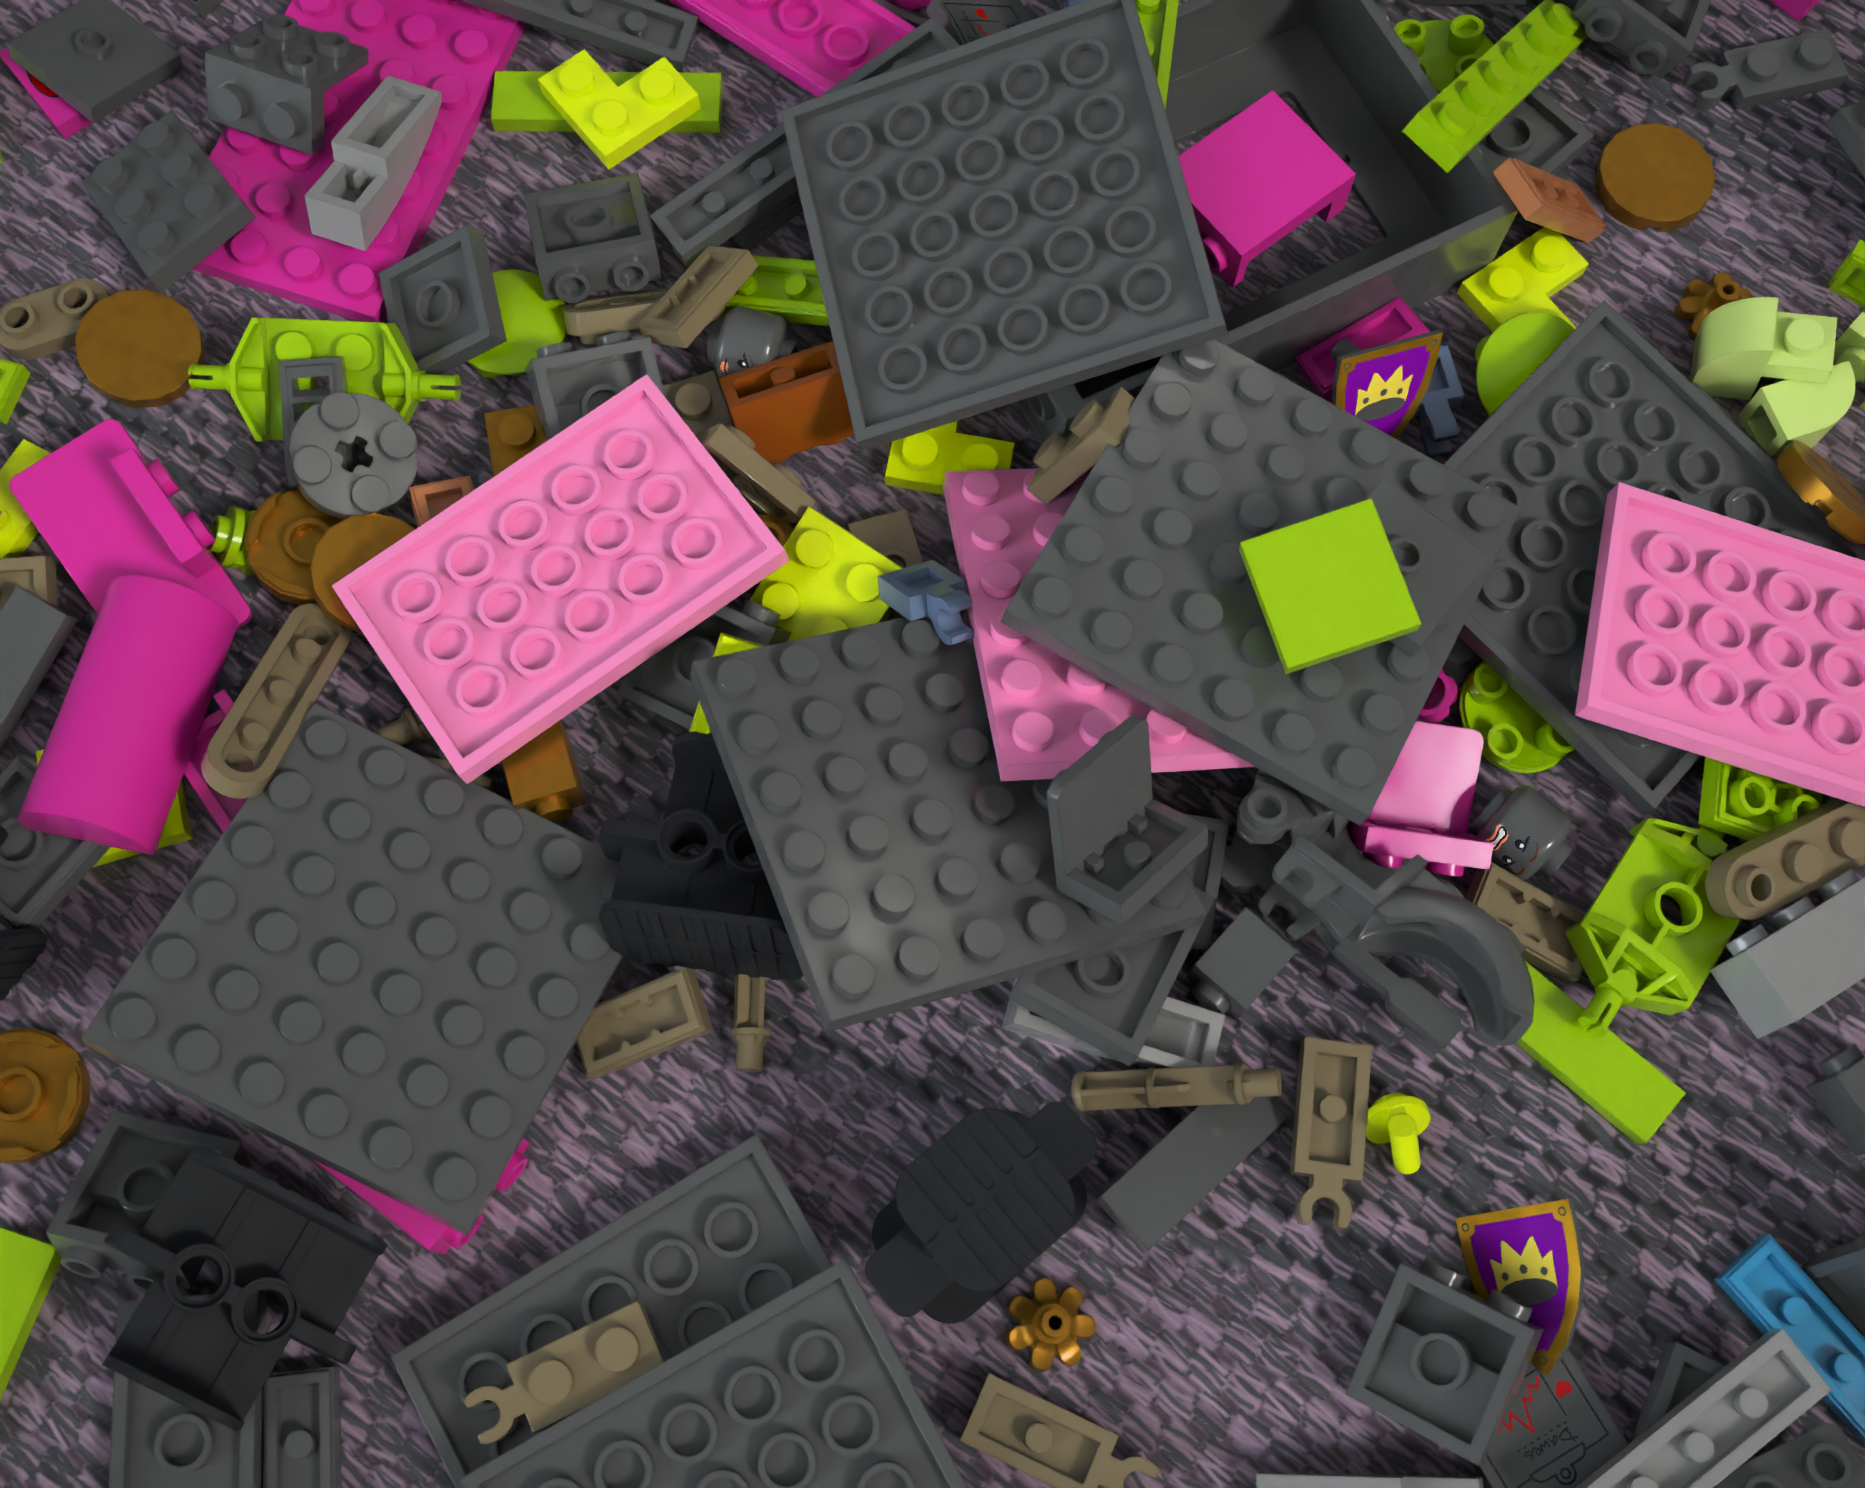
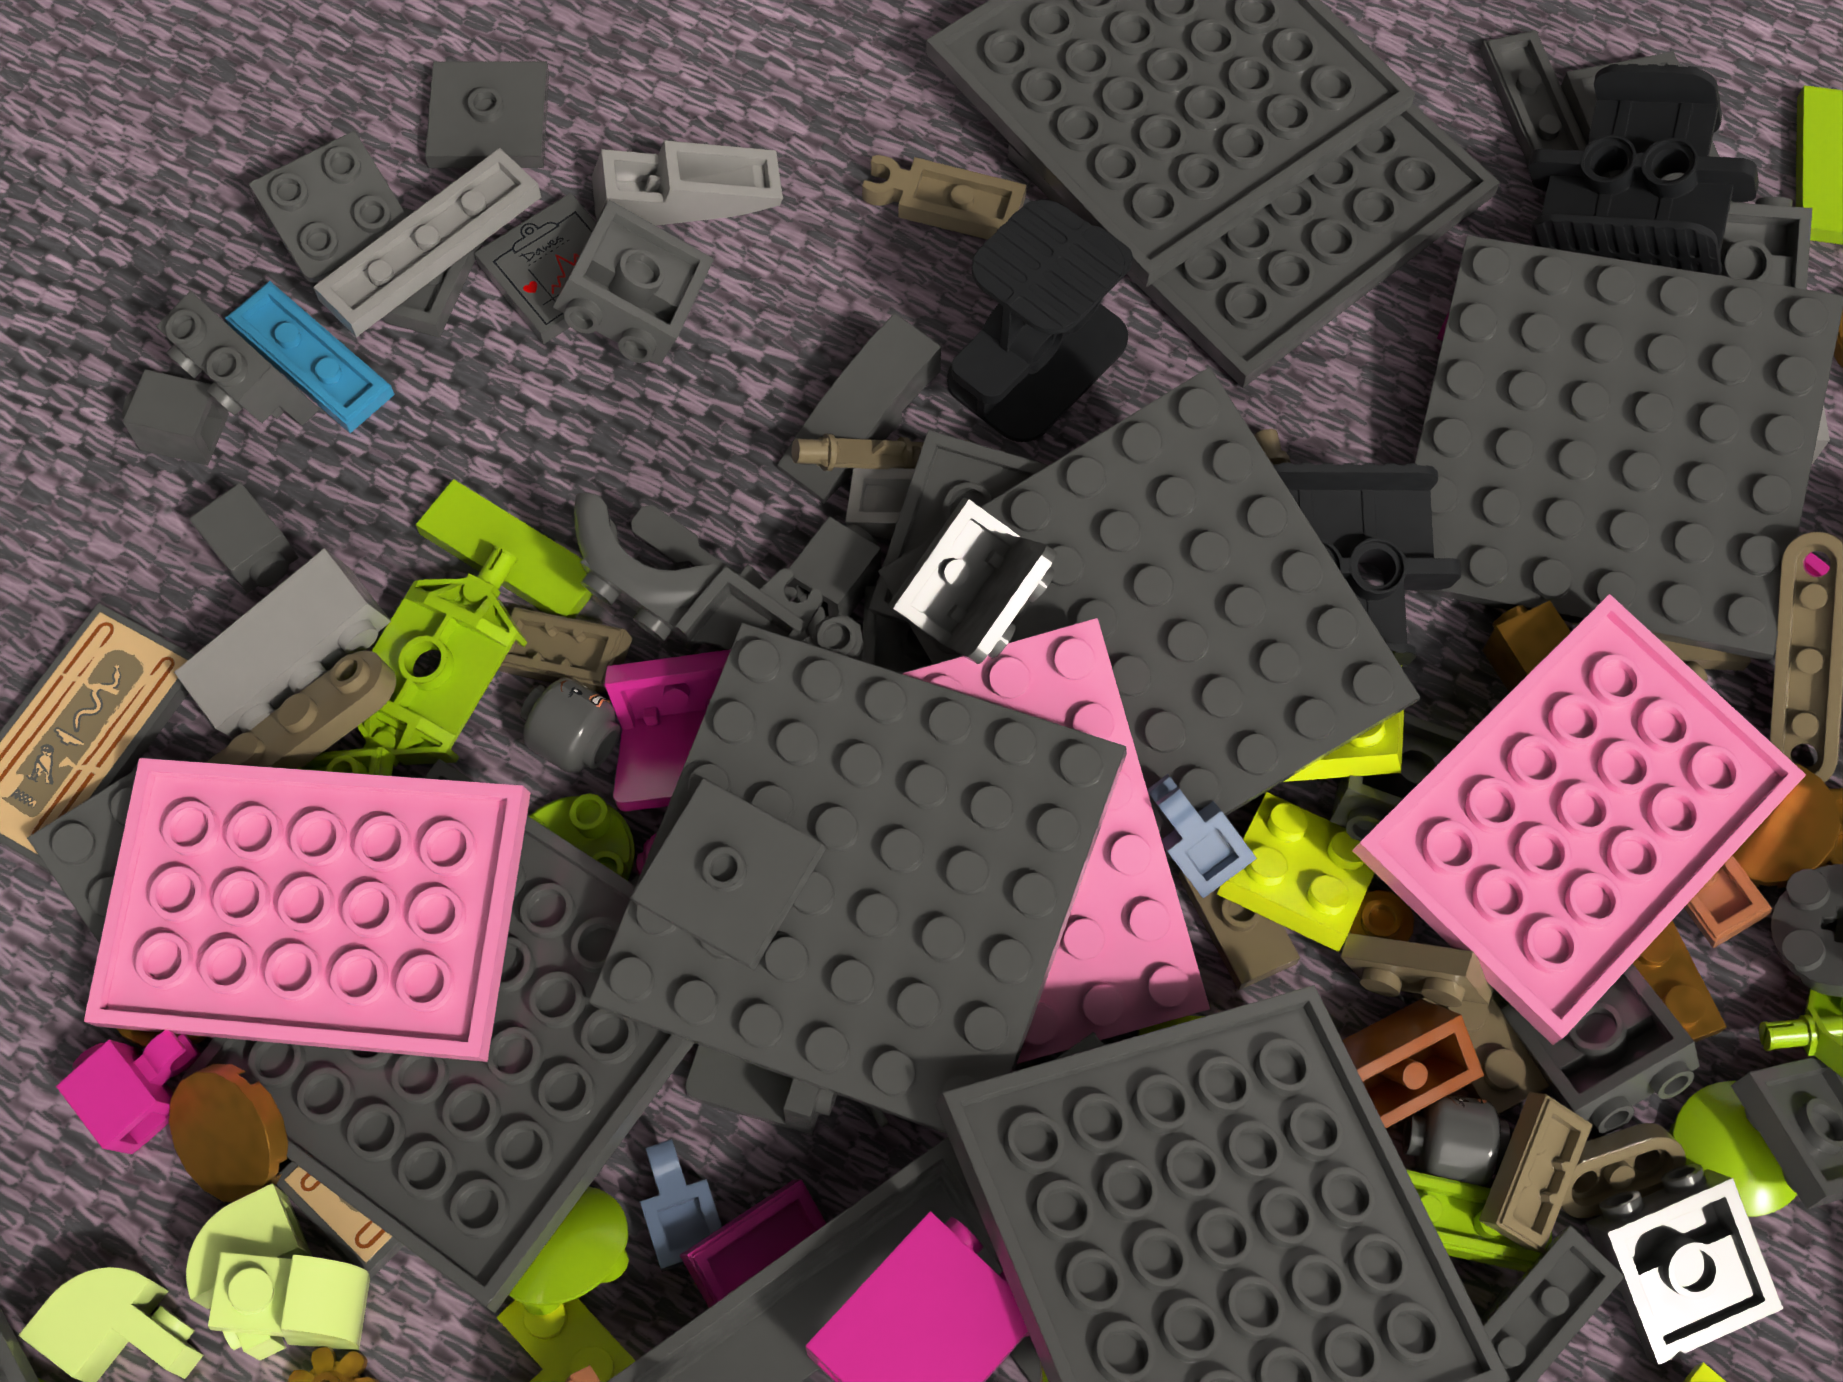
camera: 170 degrees right, 5 degrees down
(572, 1372) = (1349, 183): dark tan plate -> none
(643, 1023) = (1378, 441): dark tan plate -> none
(1034, 1324) = (957, 288): pearl gold plant -> none
(1069, 456) = (1072, 1002): dark tan plate -> none
(1329, 586) = (804, 805): lime tile -> none
(1330, 1124) = (740, 458): dark tan plate -> none
(1385, 381) = (747, 1161): shield -> none
(1399, 1121) = (678, 458): neon yellow plate -> none
(1535, 1259) = (562, 356): shield -> none

